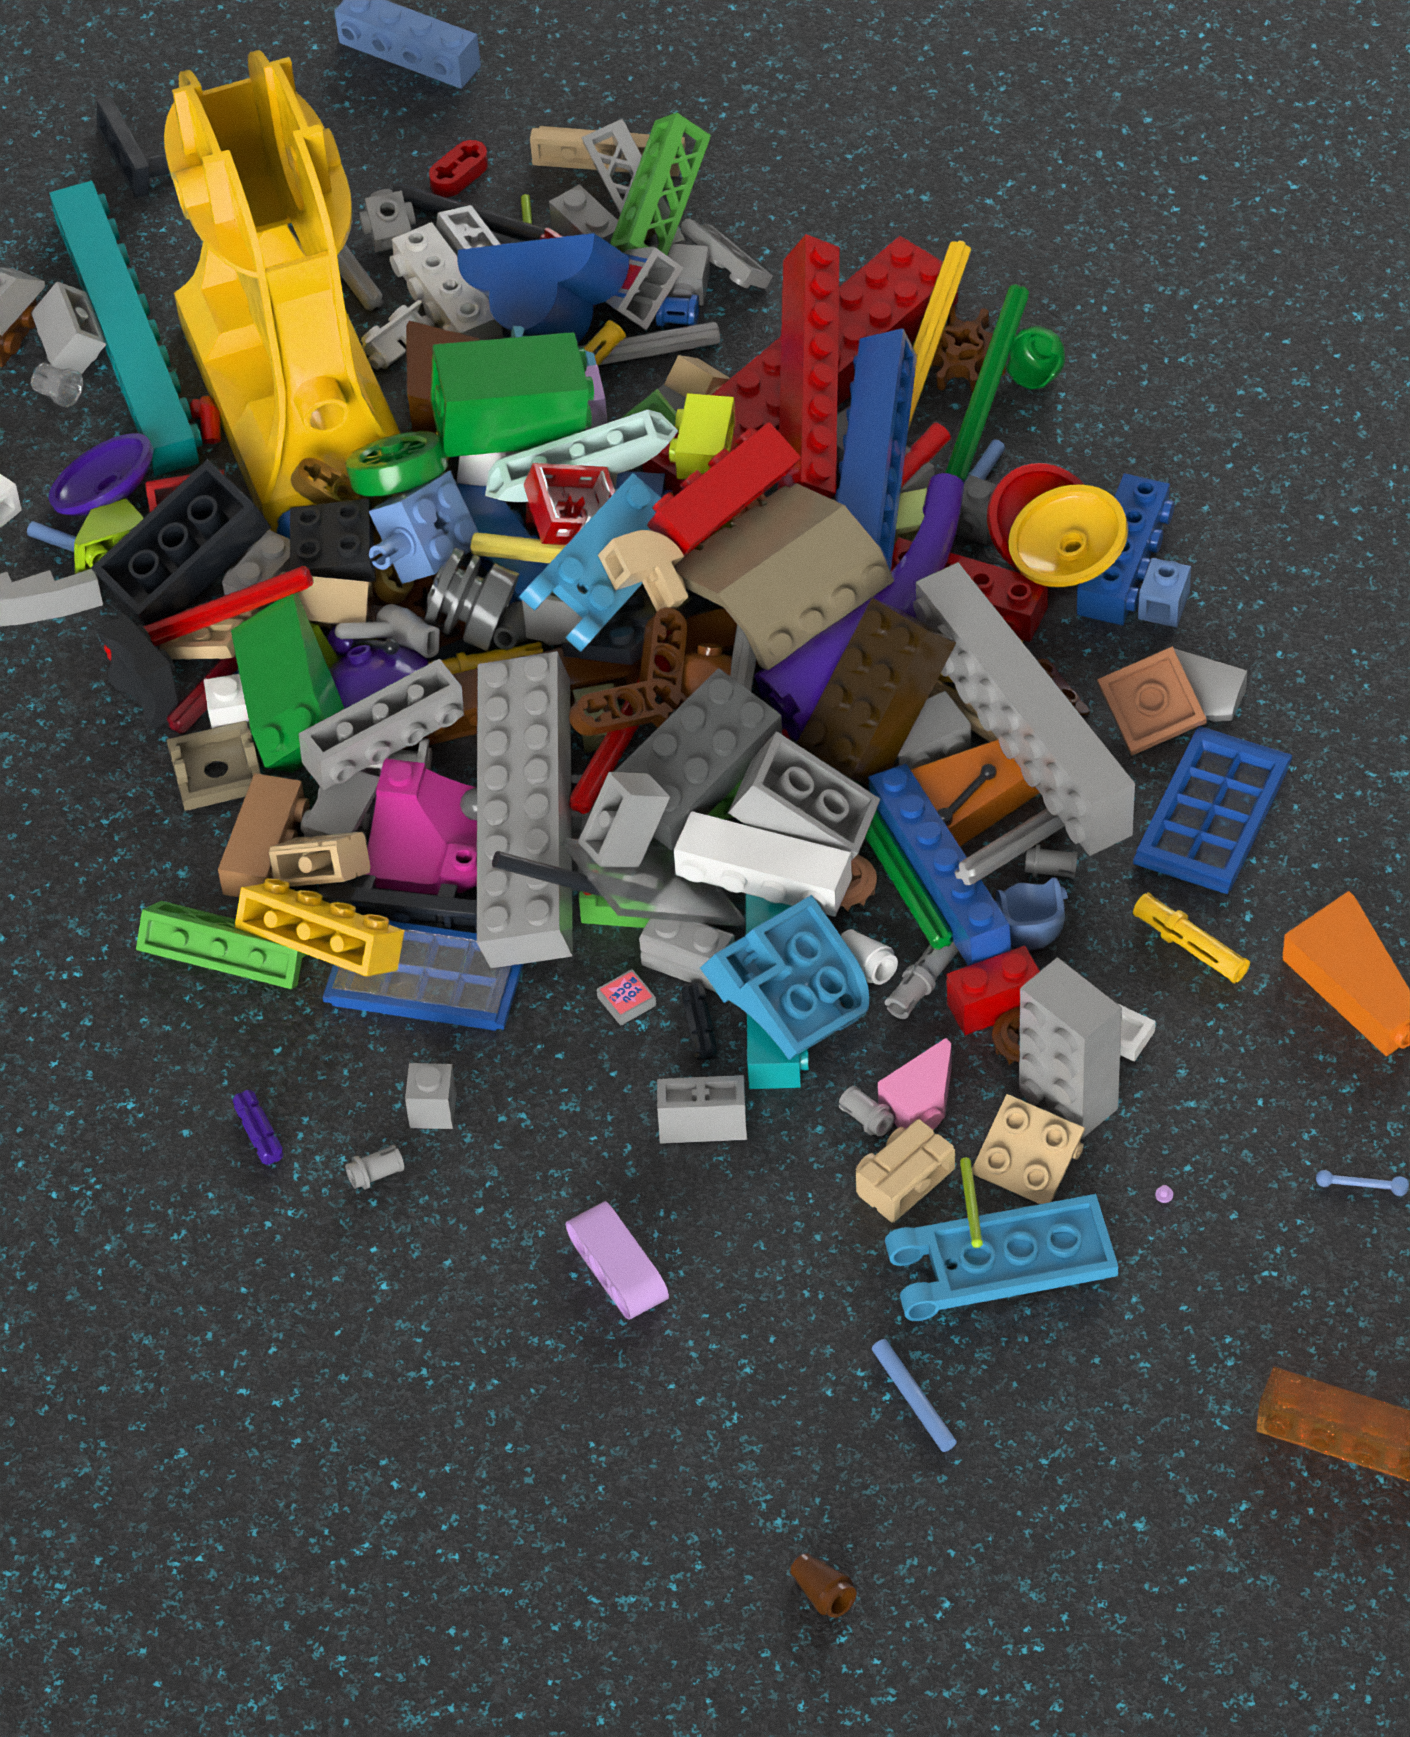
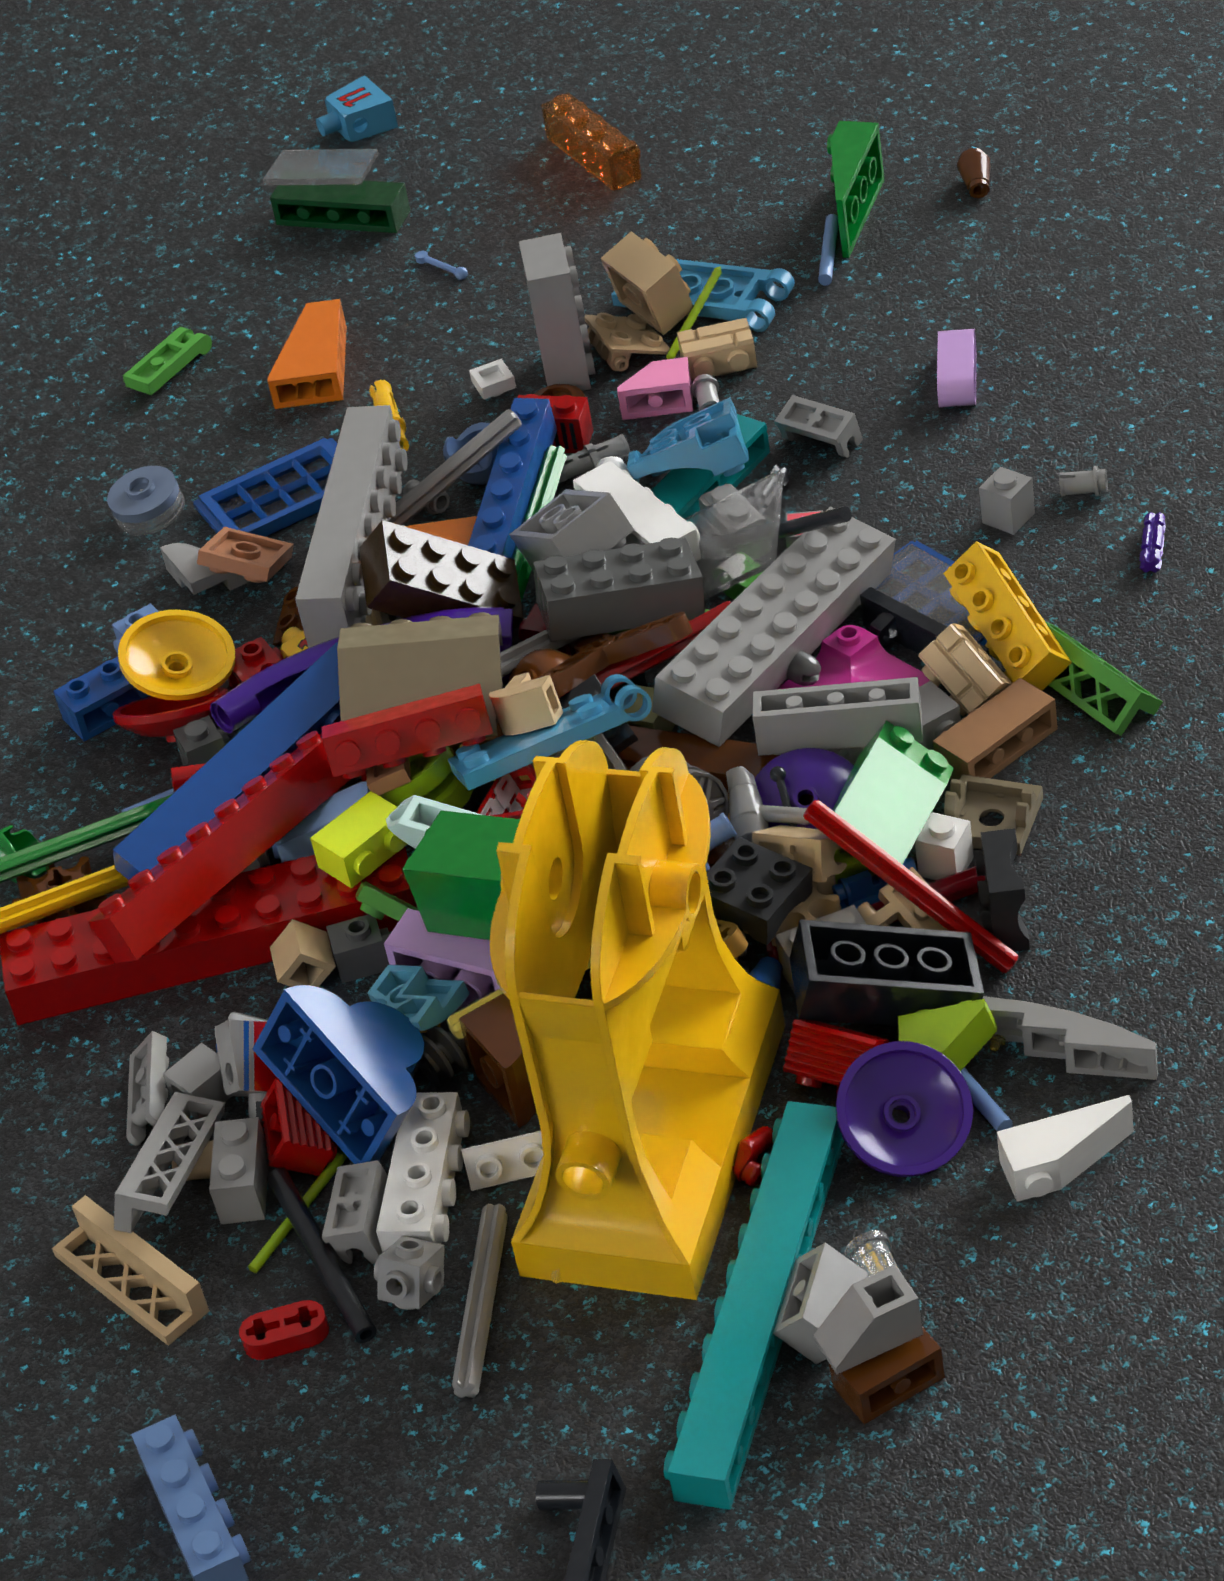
camera: 140 degrees left, 10 degrees down
(623, 819) = (719, 534): light grey brick -> none
(652, 177) = (159, 1116): bright green fence -> none
(946, 1465) = (856, 176): none -> green slope
(987, 772) = (469, 520): black hinge -> none
(1026, 1166) = (648, 282): none -> tan brick
(1336, 727) = (146, 500): none -> sand blue piece

